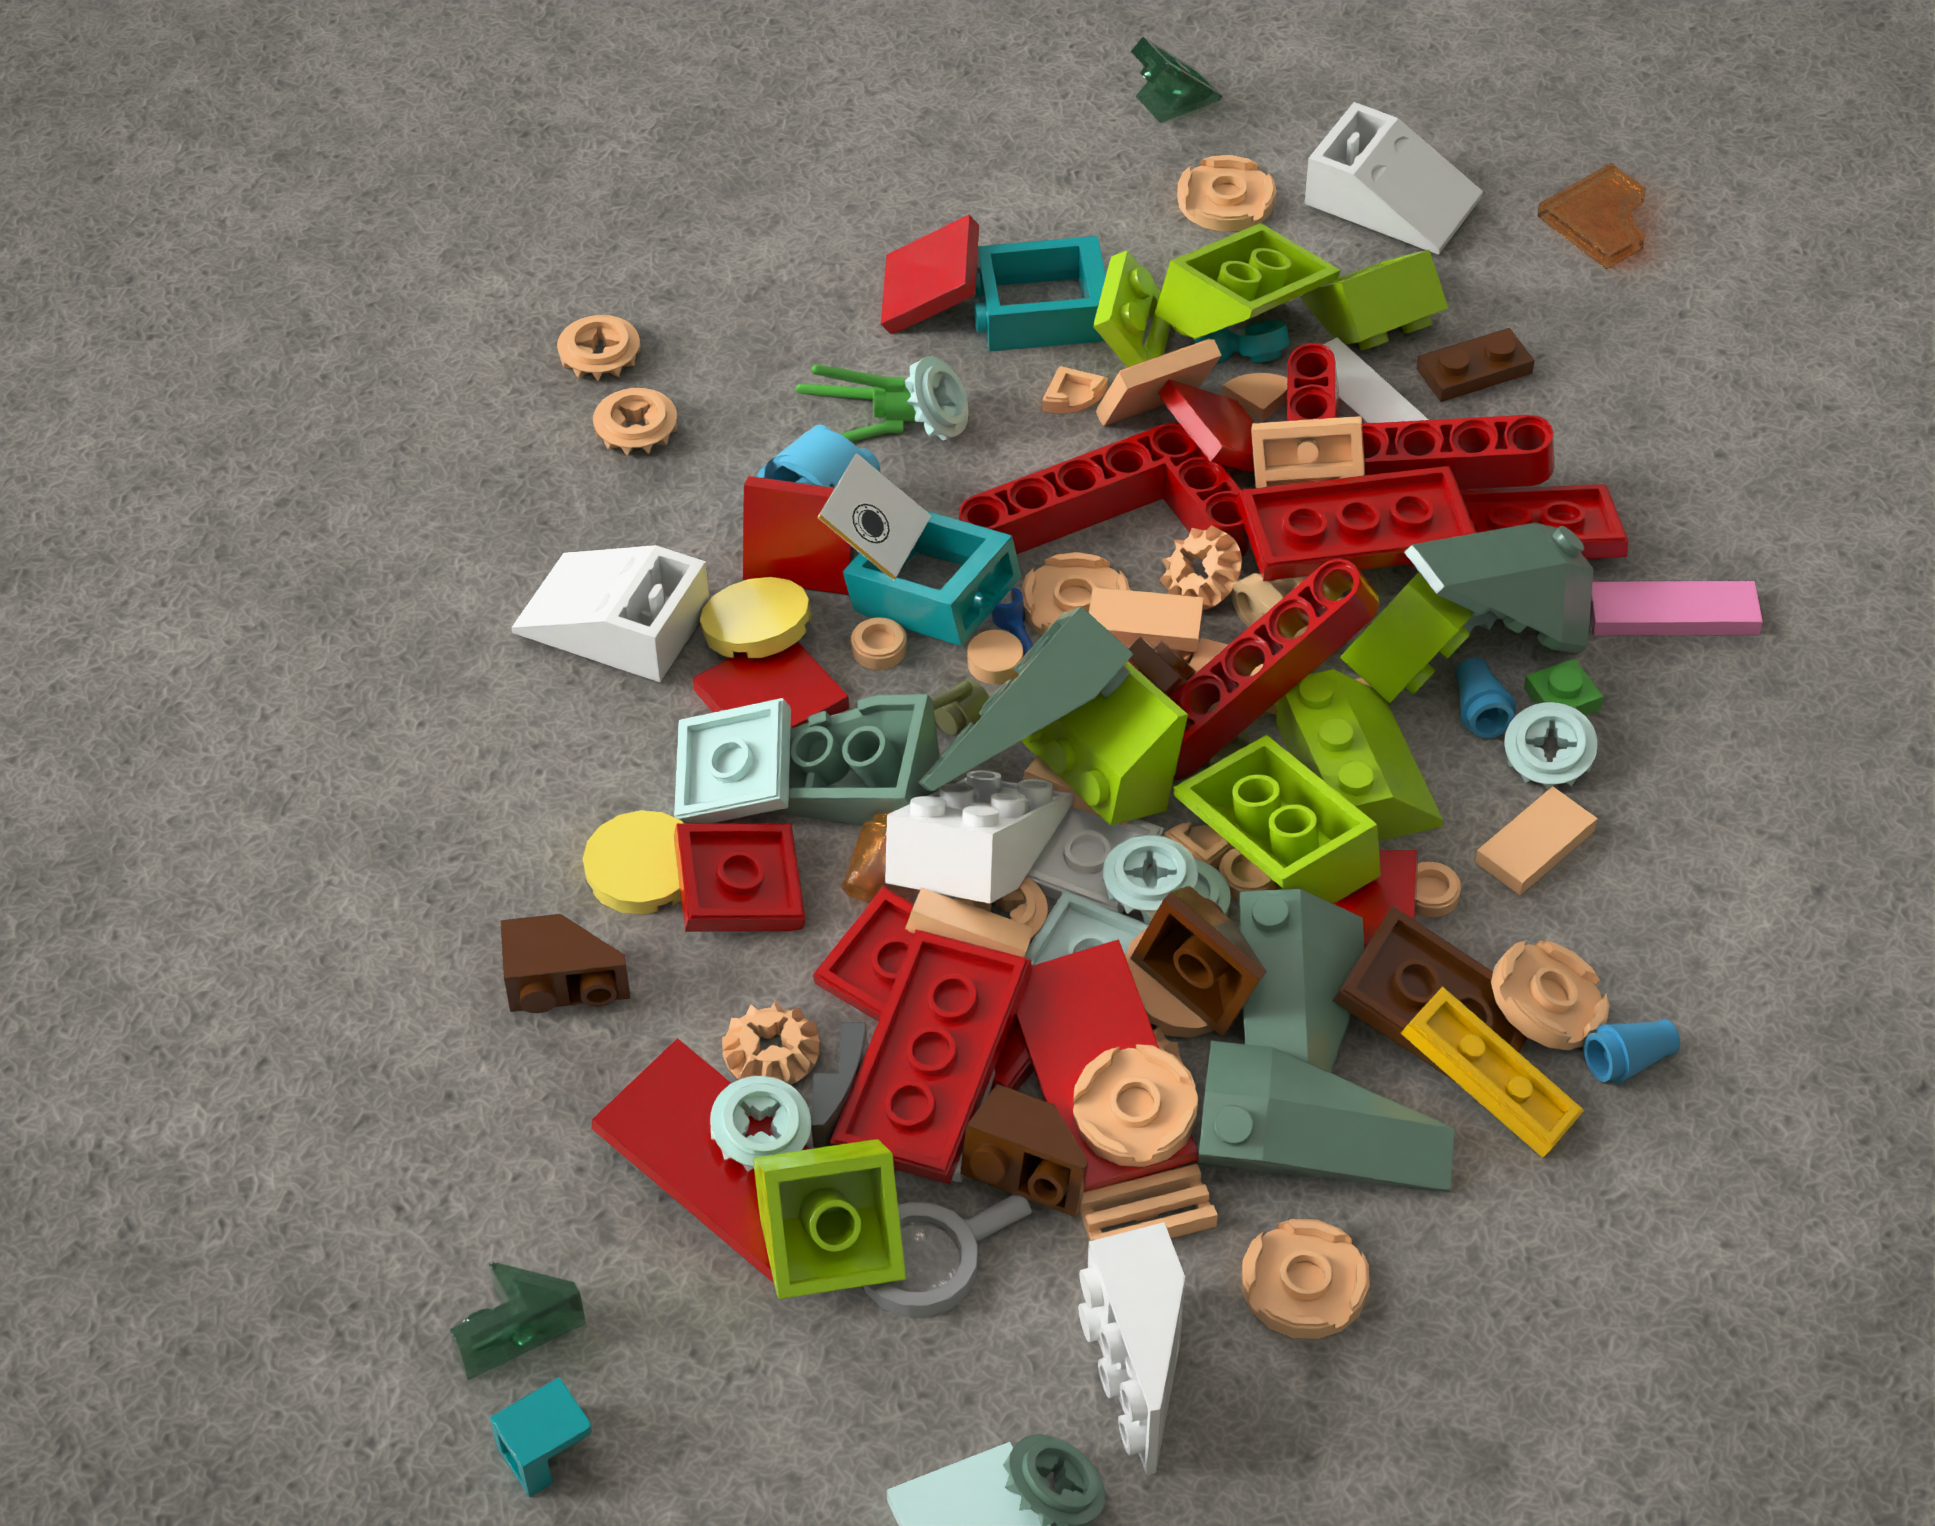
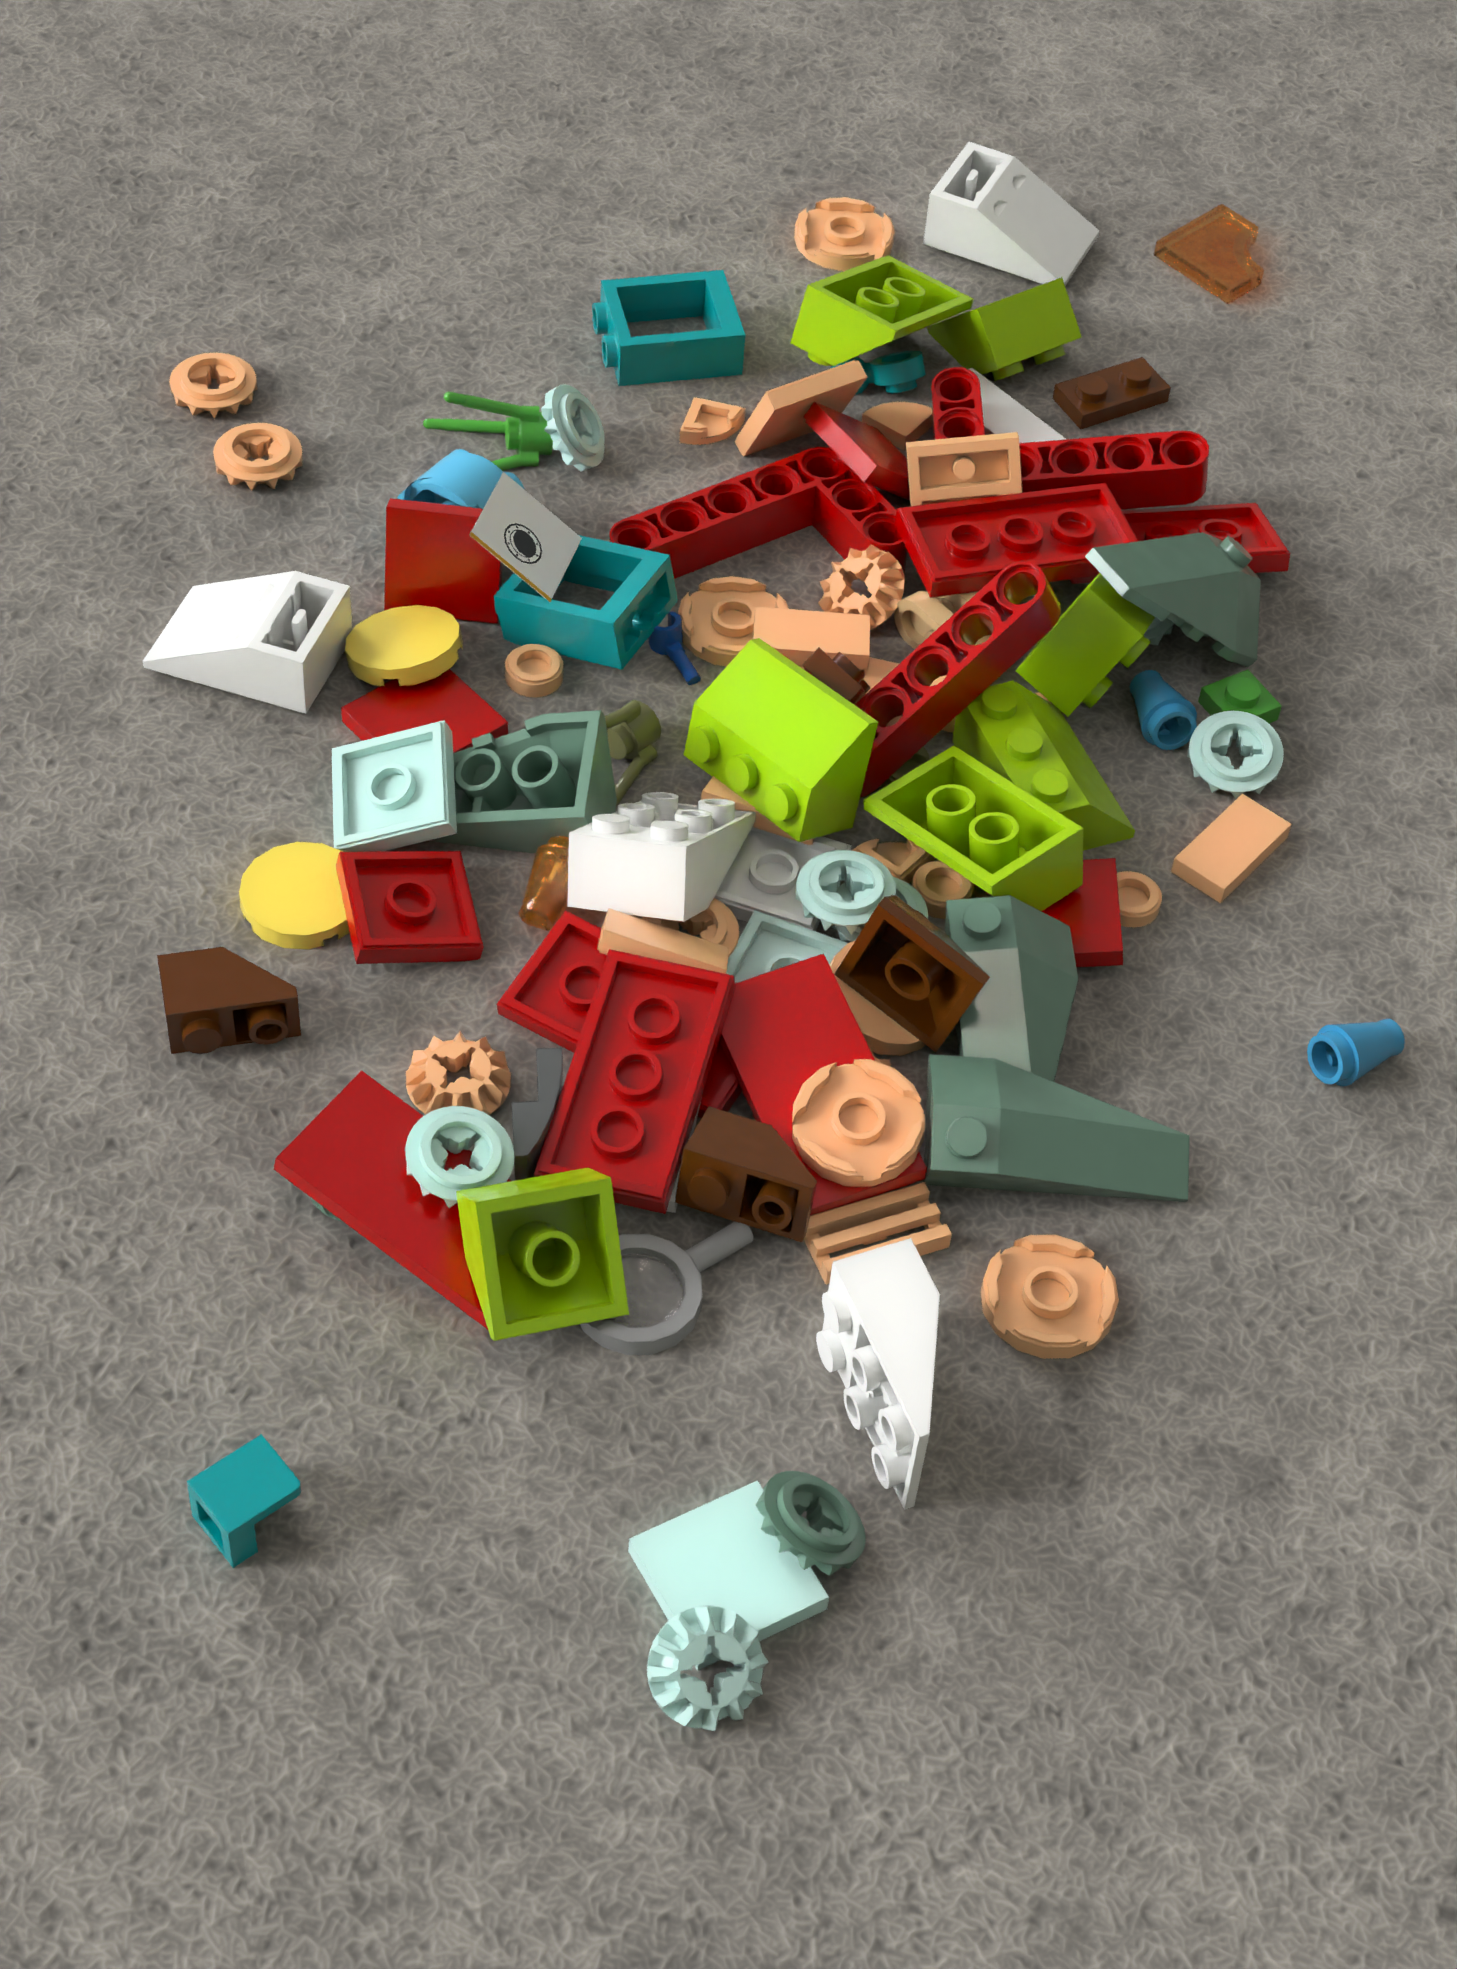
camera: 10 degrees left, 0 degrees up
(530, 1314) = (219, 1369): clear green slope -> none
(930, 275) = (555, 309): tile -> none
(994, 656) = (657, 680): light nougat tile -> none
(1055, 677) = (737, 685): sand green wedge -> none
(1124, 309) = (763, 338): lime plate -> none
(1171, 83) = (779, 133): clear green slope -> none
(1403, 972) = (1157, 1011): reddish brown tile -> none
(1492, 1072) = (1220, 1077): yellow tile -> none
(1549, 994) = (1267, 998): light nougat tile -> none
(1675, 608) = (1341, 620): bright pink tile -> none

